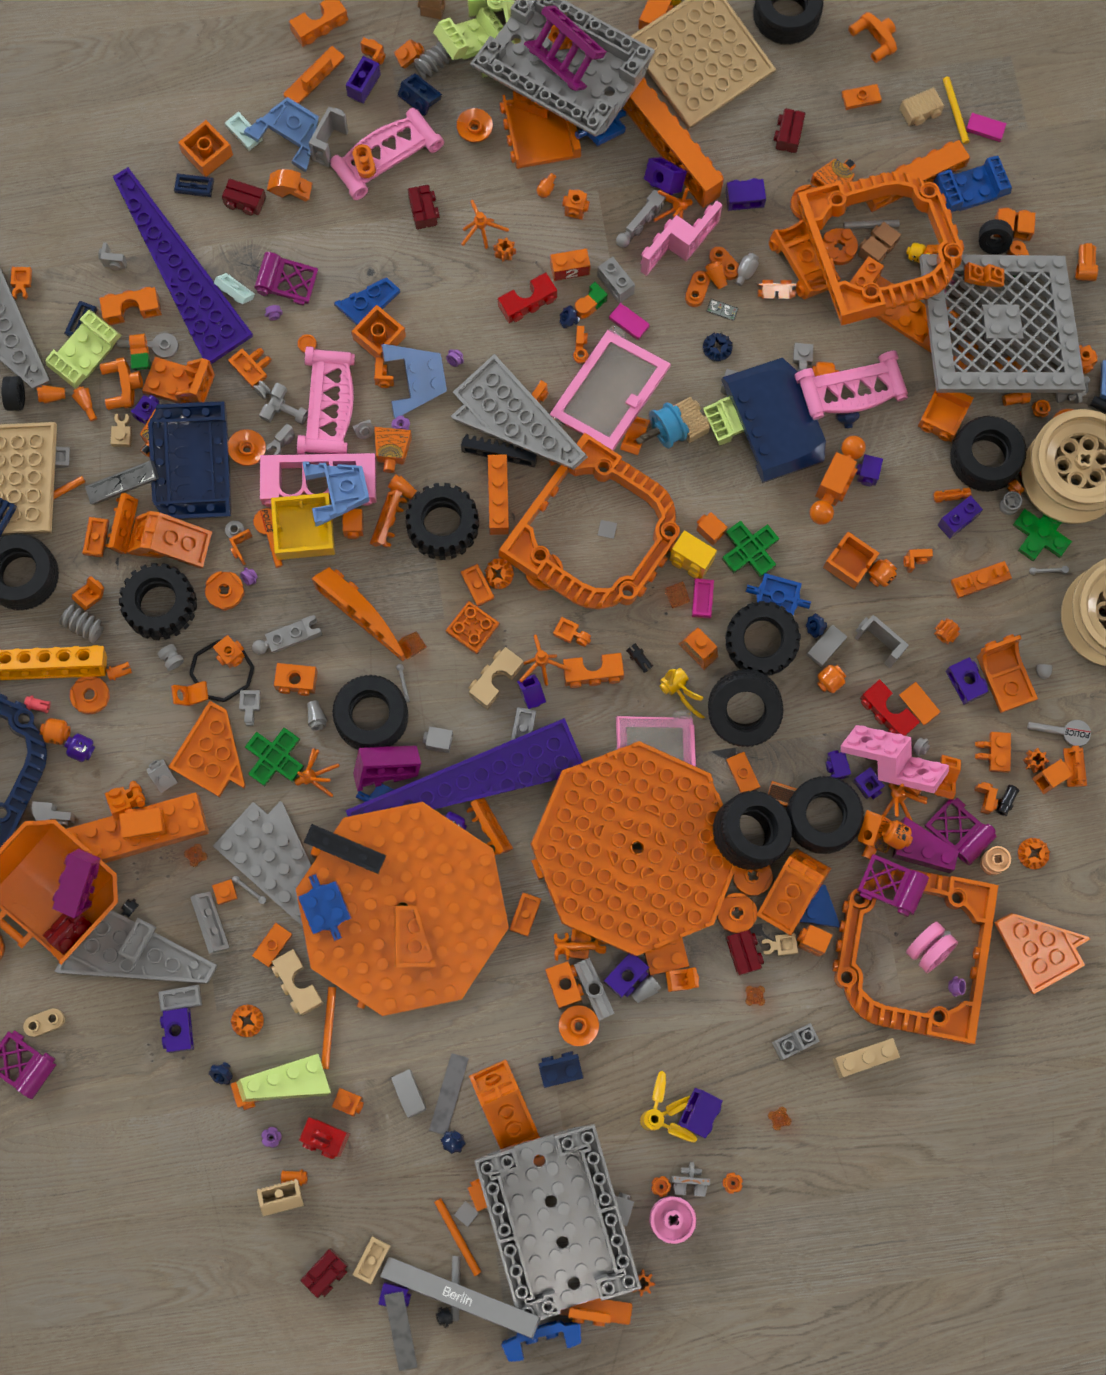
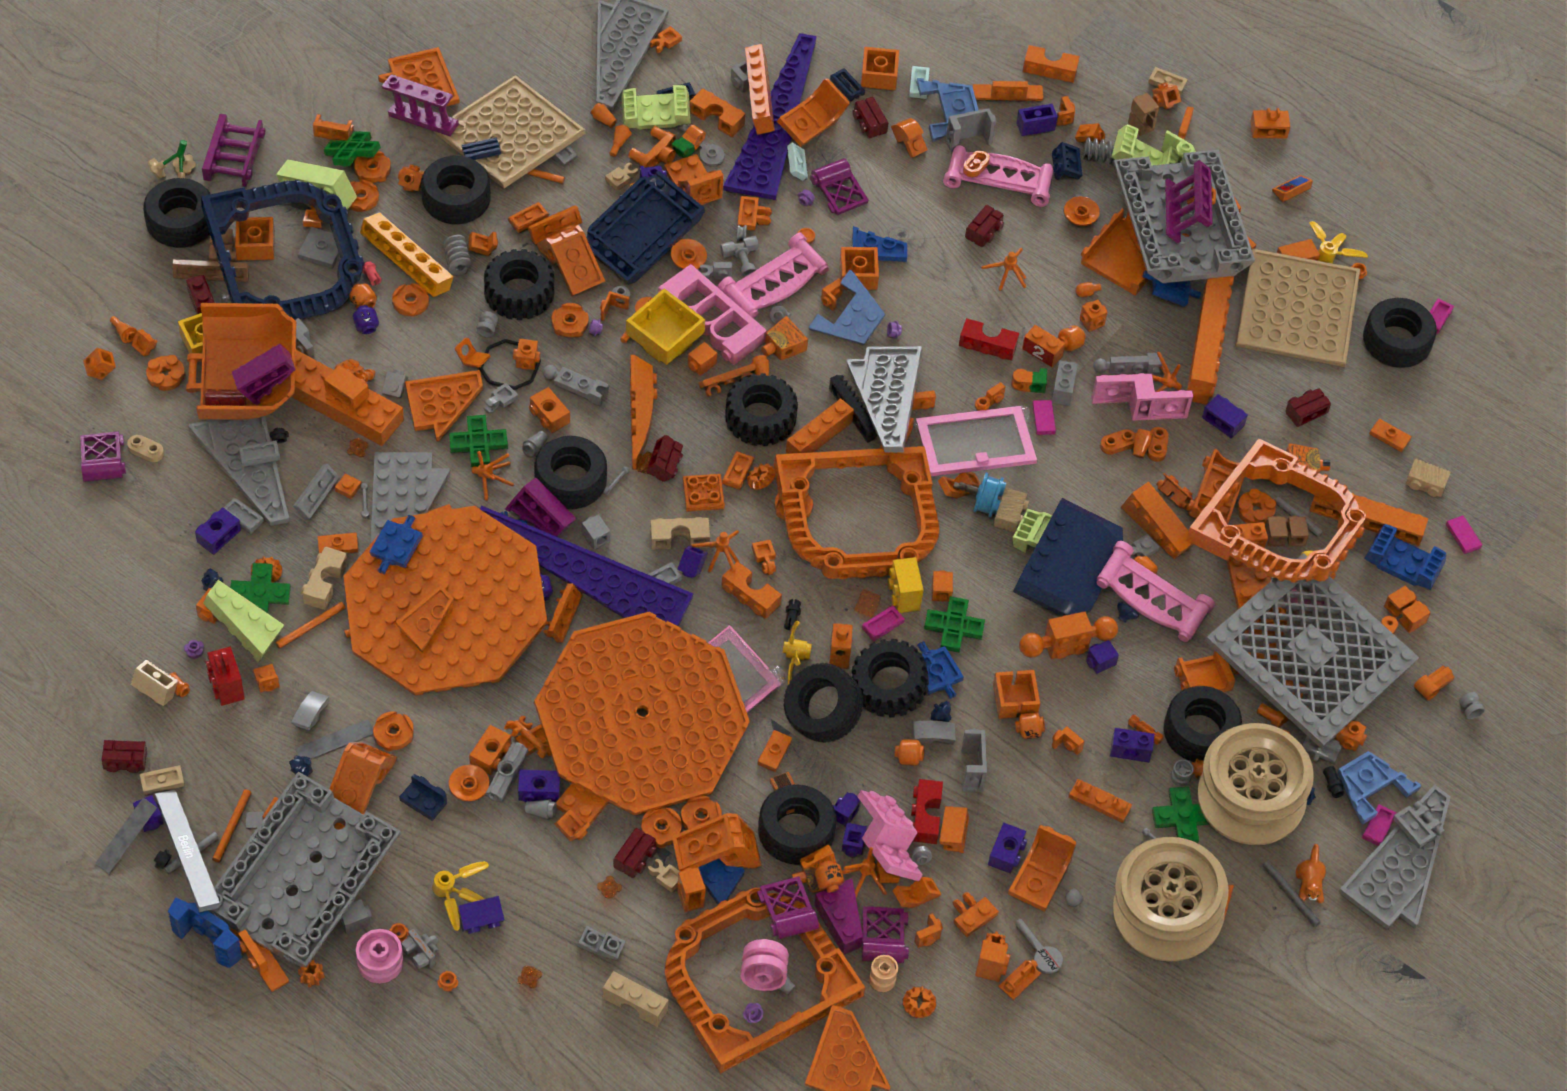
camera: 45 degrees right, 20 degrees down
(13, 393) = (580, 92): black tyre -> none
(117, 671) = (445, 302): orange pin -> none
(122, 482) = (583, 199): flat silver tile -> none
(141, 255) = (759, 89): none -> orange brick
(204, 236) = (815, 113): none -> orange bracket
(265, 1044) = (261, 589): none -> green plate
(345, 486) = (719, 328): medium blue wing -> none
(345, 848) = (451, 520): black gear -> none
(400, 419) = (812, 336): medium lavender plate -> none
(420, 631) = (665, 458): none -> dark red brick
(472, 1050) = (393, 741): none -> orange plate
(504, 244) = (1009, 298): orange gear -> none
(525, 914) = (519, 686): orange plate -> none
(568, 317) = (1003, 376): dark blue piece -> none
(580, 237) = (1073, 337): none -> orange head
(607, 529) = (870, 523): light grey sticker -> none
(665, 175) = (1177, 350): dark purple brick -> none
(713, 353) = (1090, 494): dark blue gear -> none
(722, 309) = (1121, 470): light grey sticker -> none
(747, 268) = (1169, 460): light grey plant -> none
(771, 817) = (749, 760): black tyre -> none
(793, 325) = (1157, 520): none -> orange wedge
(881, 32) = (1456, 407): orange connector -> none
(947, 631) = (1032, 803): orange gear -> none
(955, 109) = (1453, 505): yellow bar -> none
(984, 276) = (1338, 611): orange slope -> none
(998, 227) = (1389, 598): black tyre -> none
(1006, 803) = (940, 949): black pin -> none

